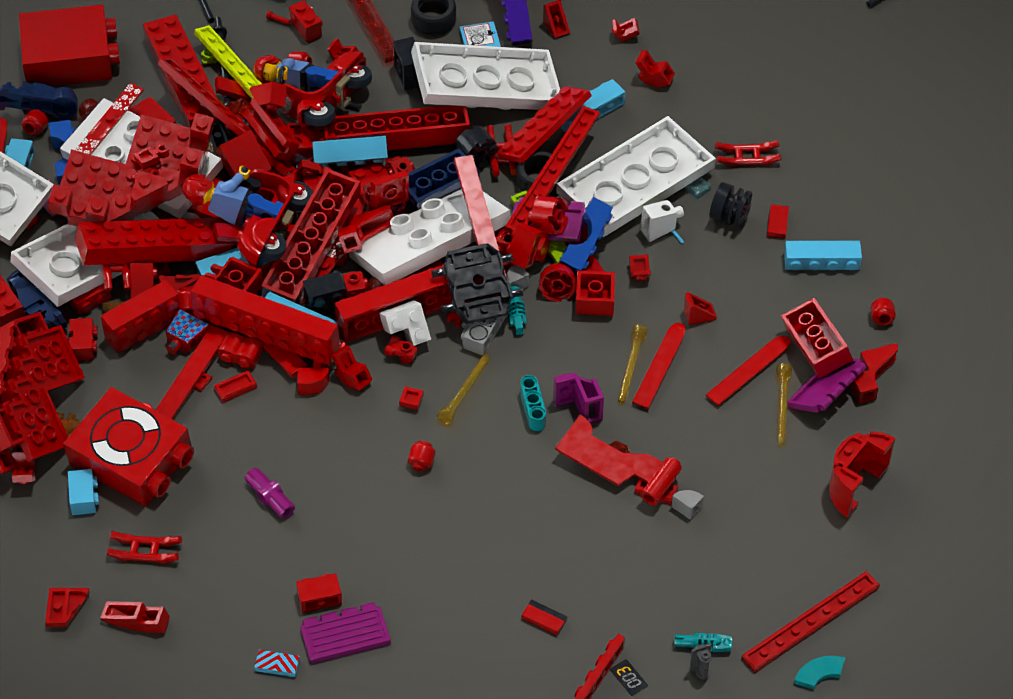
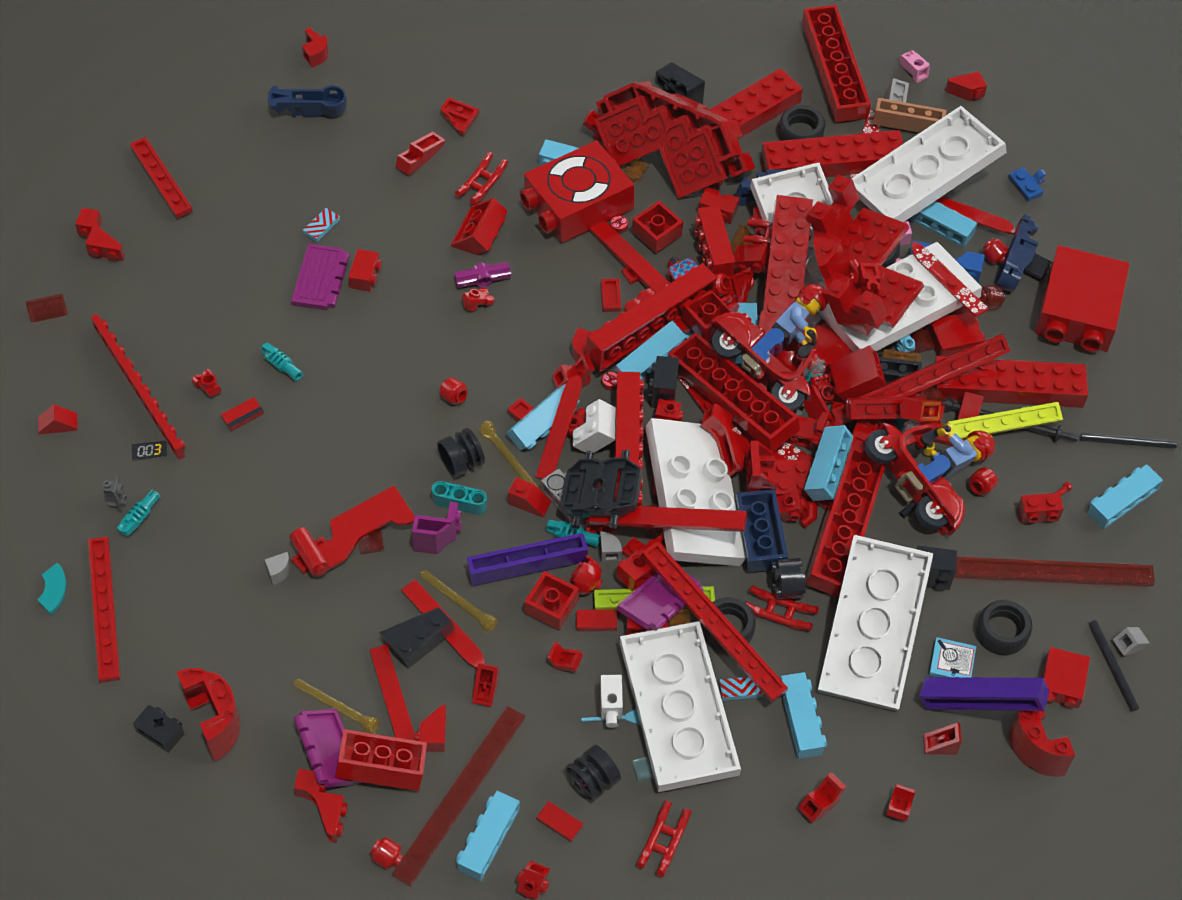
camera: 115 degrees right, 5 degrees up
(137, 372) = (657, 226): none -> red brick
(211, 521) = (480, 227): none -> red slope
(301, 483) = (477, 297): none -> red plate
(336, 49) = (982, 524): red bracket -> none
(412, 374) = (536, 422): none -> medium azure brick
(418, 353) = (560, 427): none -> red piece
(467, 612) = (281, 361): none -> teal hinge
(490, 413) = (460, 452): none -> black wheel
(502, 357) = (528, 497): none -> red slope
(524, 245) = (626, 547): red brick -> none
(528, 665) = (207, 382): none -> red plate
(543, 124) = (785, 647): red plate -> none
(549, 214) = (651, 584): red brick -> none
(567, 325) = (527, 559): none -> dark purple brick
(588, 152) = (739, 689): none -> tile
(595, 217) = (627, 622): blue arch -> none
(688, 368) = (418, 635): none -> black wedge
(761, 326) = (433, 730): none -> red slope
(796, 290) = (458, 796): none -> clear red plate
(839, 210) = (533, 880): none -> red brick
(891, 514) = (159, 728): none -> black brick

